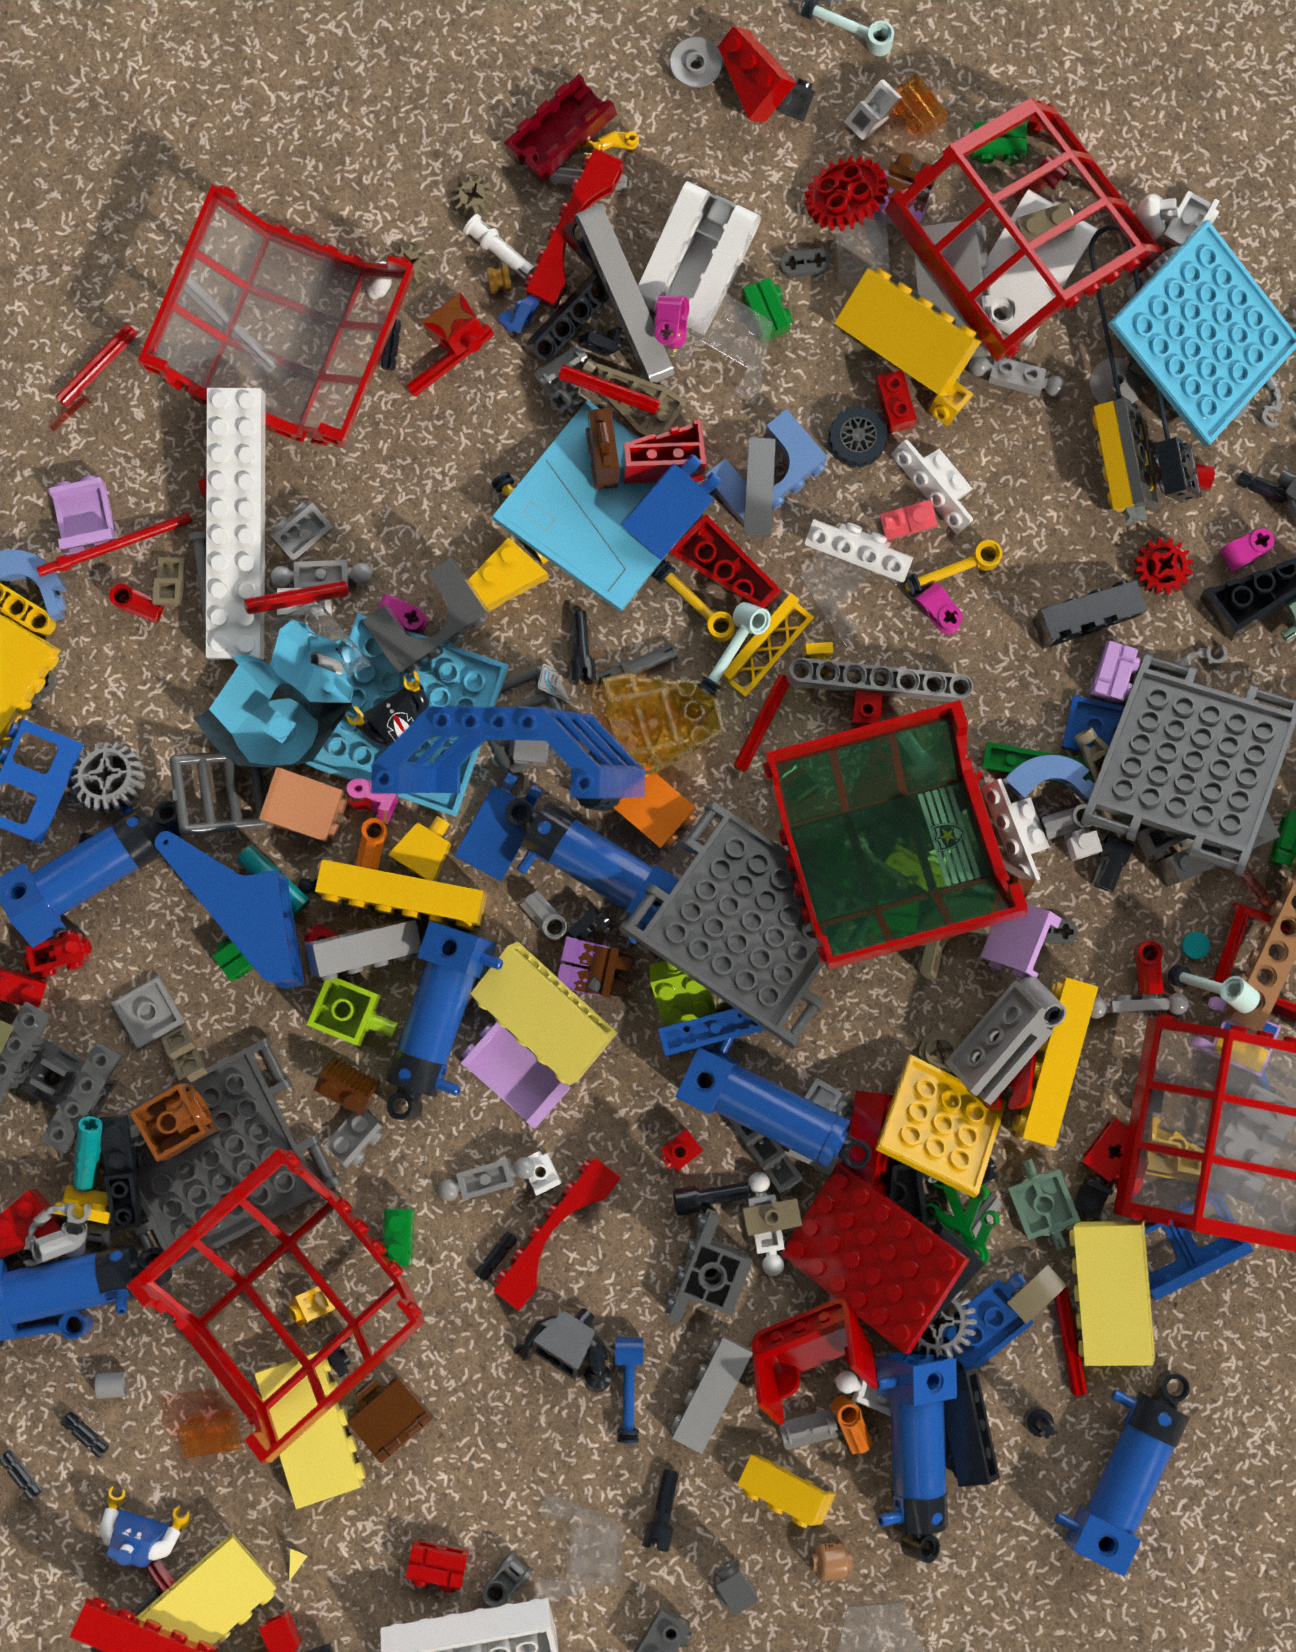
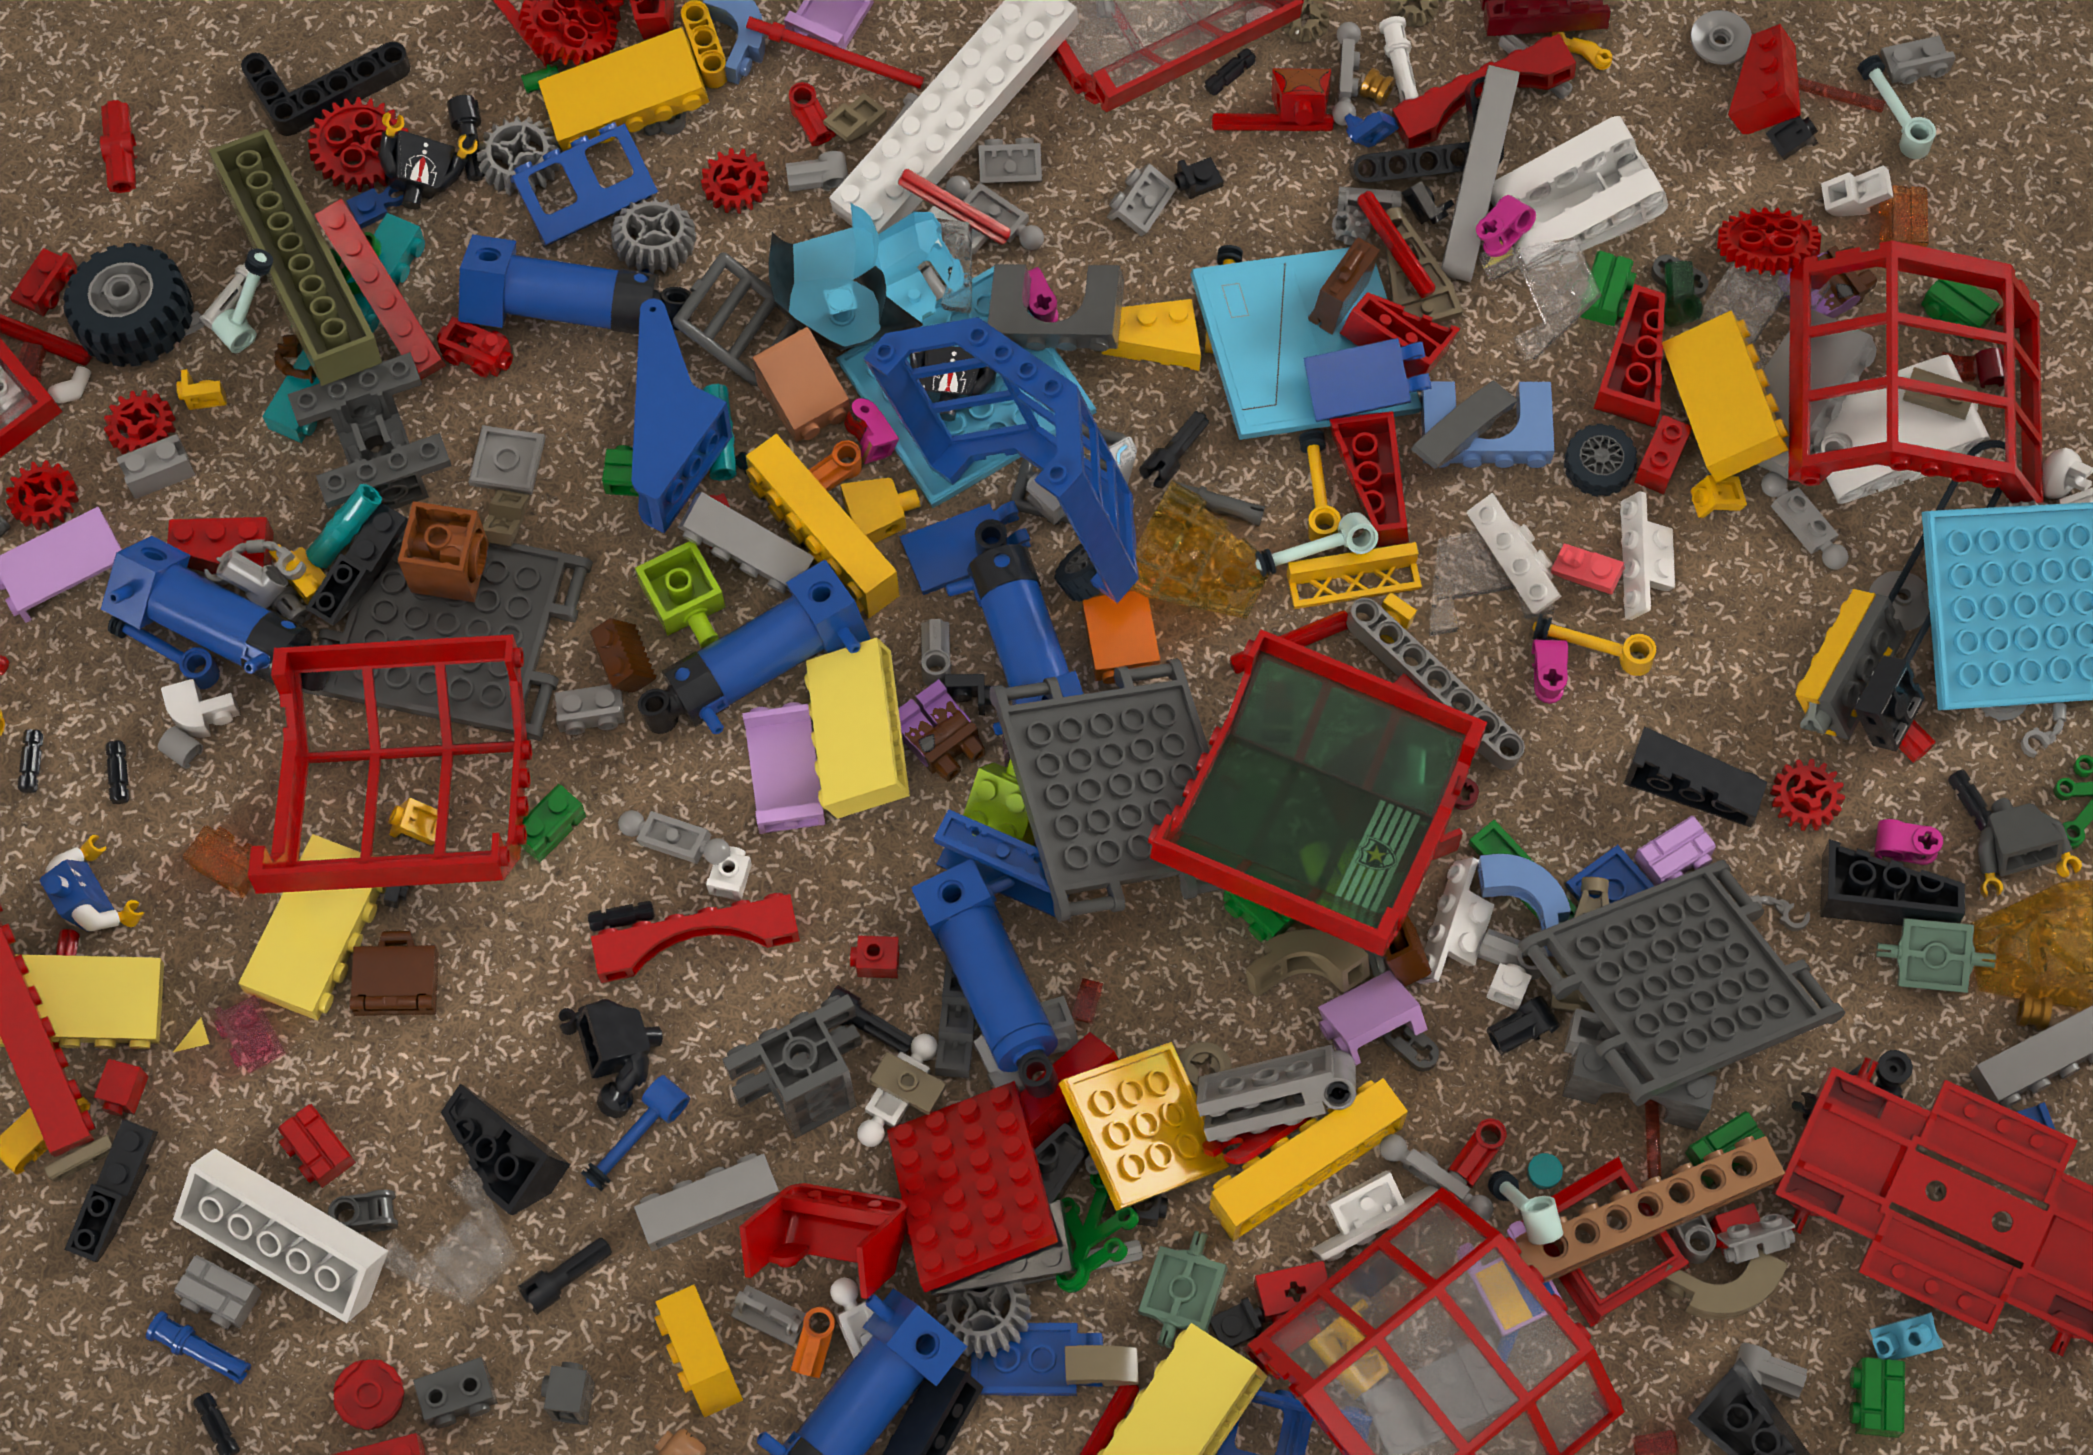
camera: 40 degrees right, 15 degrees down
(98, 1358) = (193, 714): none -> white brick
(123, 702) = (730, 192): none -> red gear
(182, 636) = (824, 172): none -> light grey piece
(328, 1531) = (250, 1034): none -> clear pink bracket
(410, 486) = (1142, 198): none -> light grey bracket
(434, 440) = (1197, 177): none -> black bracket
(449, 255) = (1348, 35): none -> light grey plate
(561, 1469) = (508, 1158): none -> black wedge
(805, 43) = (1841, 95): none -> clear red bar
(824, 284) = (1681, 303): none -> clear green piece
(829, 354) = (1634, 368): none -> red wedge
(834, 1069) = (1087, 1001): none -> clear red piece
(1115, 1061) = (1367, 1211): none -> white bracket

